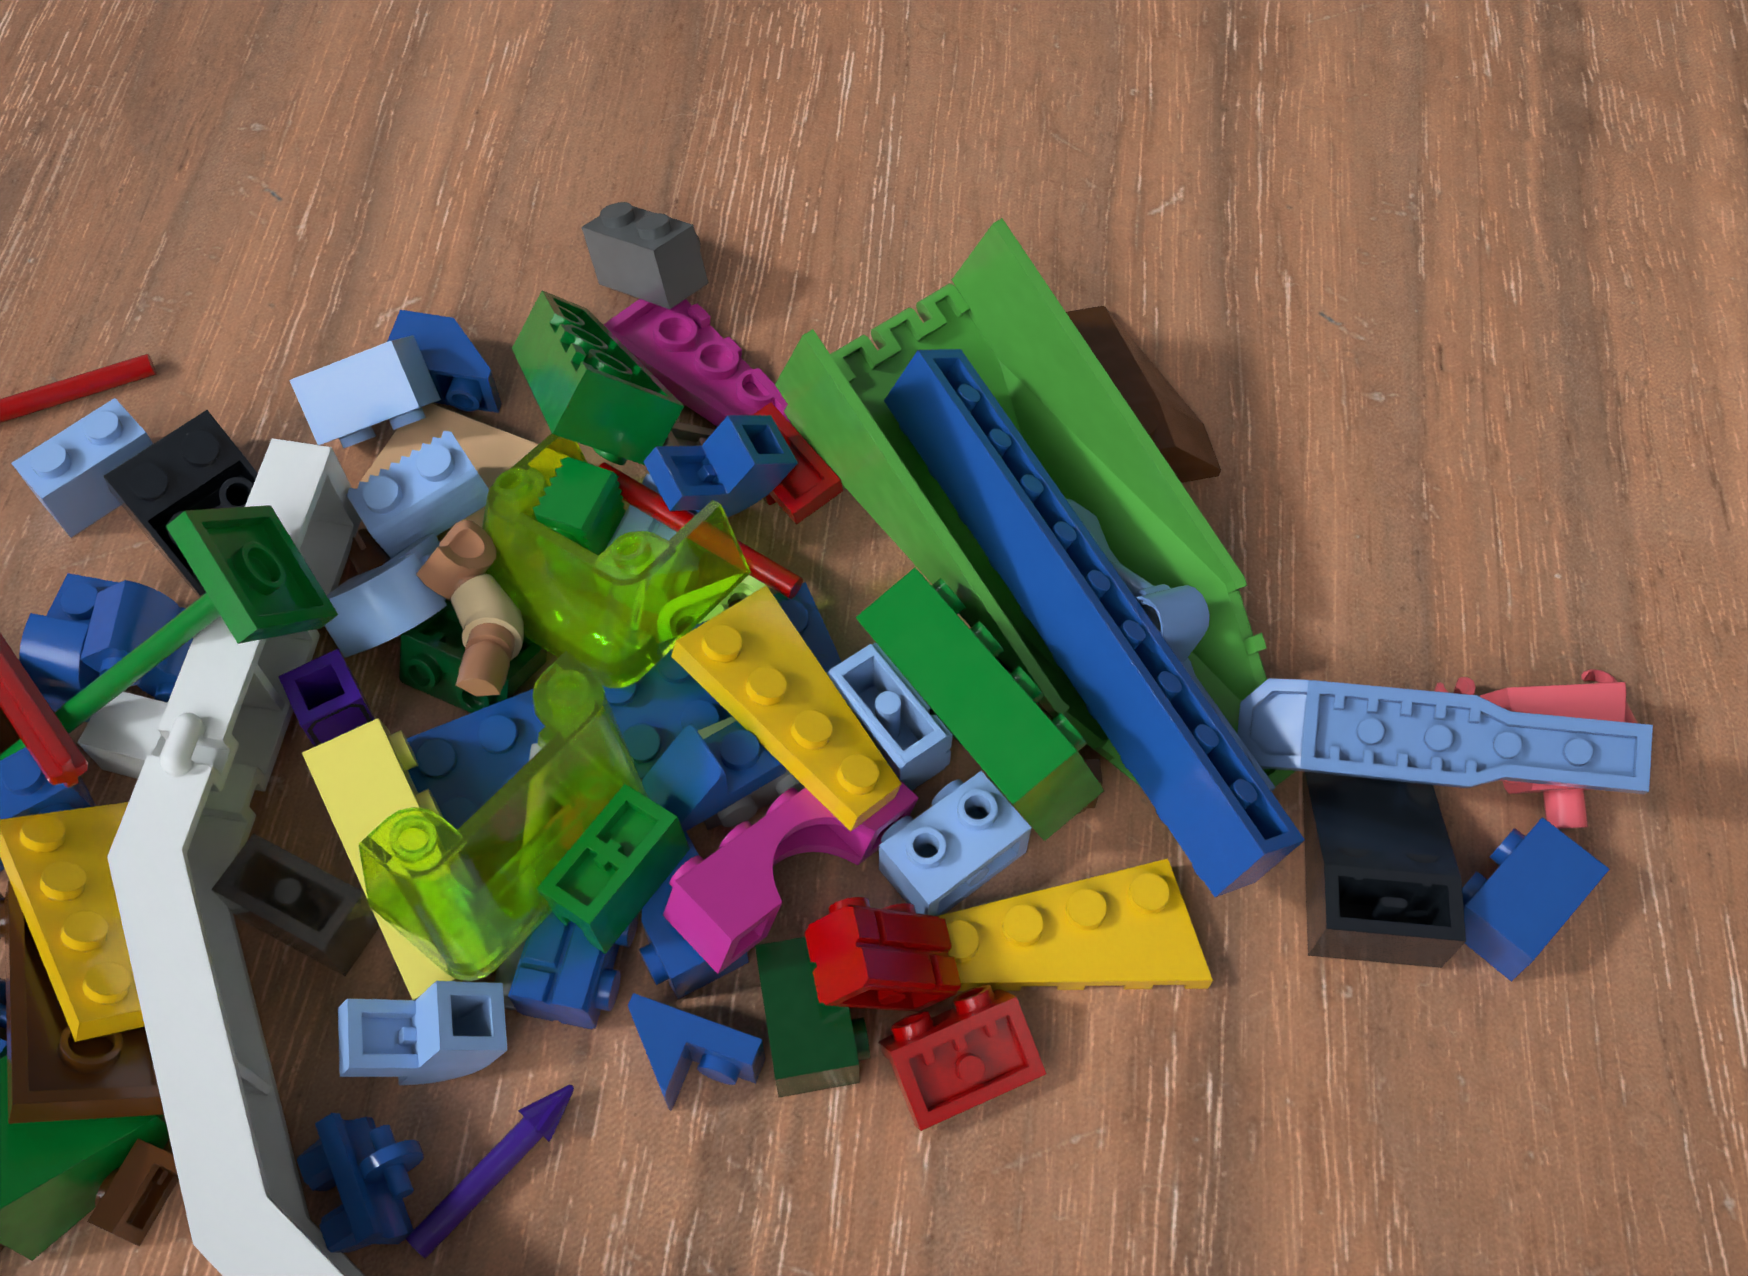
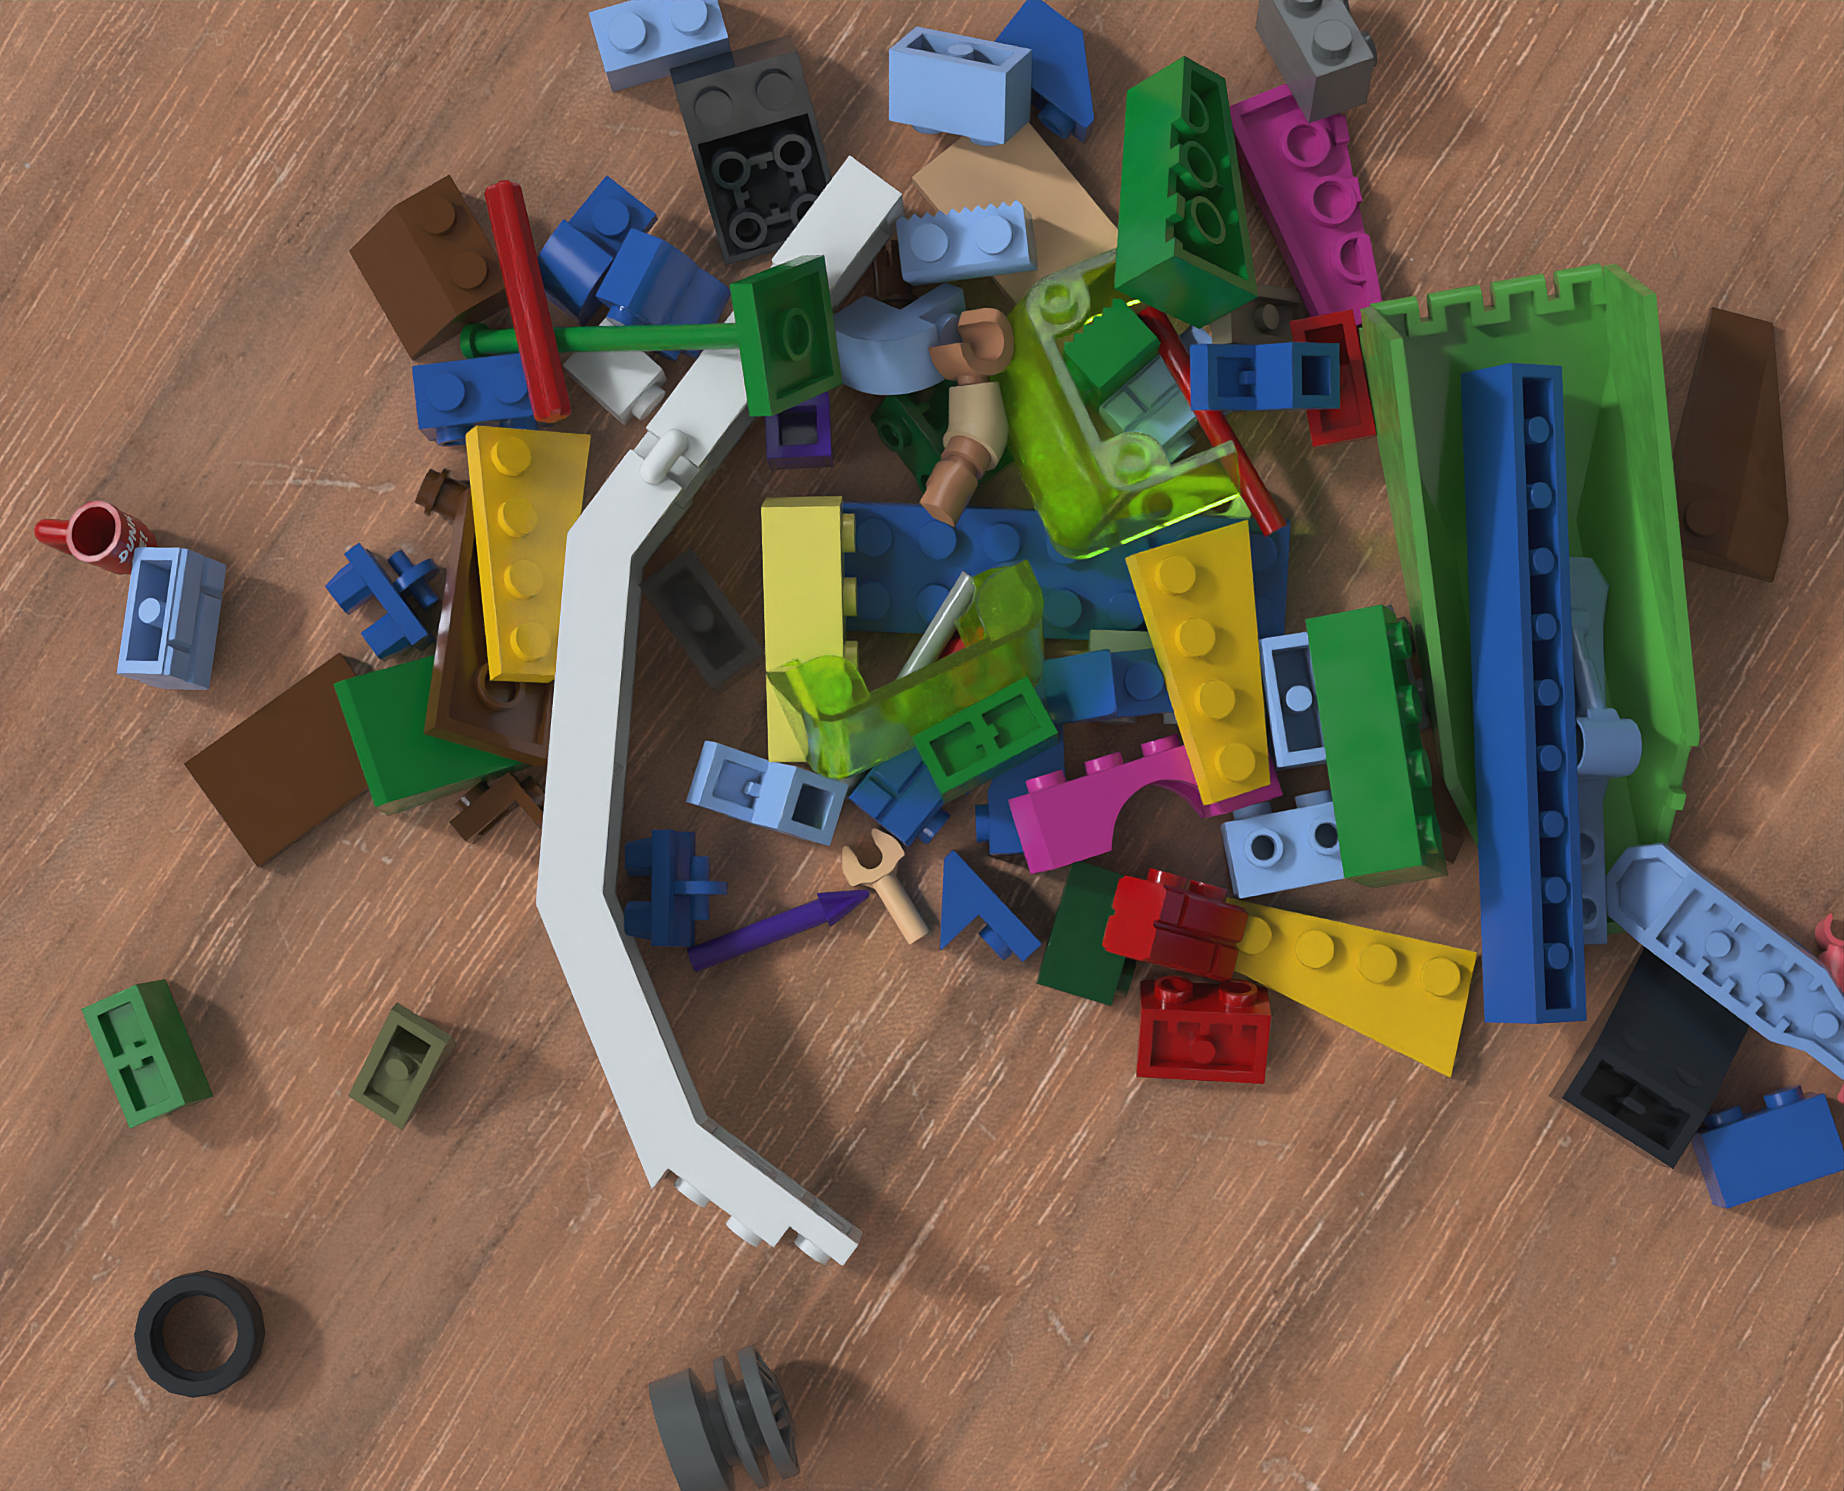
camera: 30 degrees right, 25 degrees up
(584, 1069) = (887, 884): none -> light nougat bar

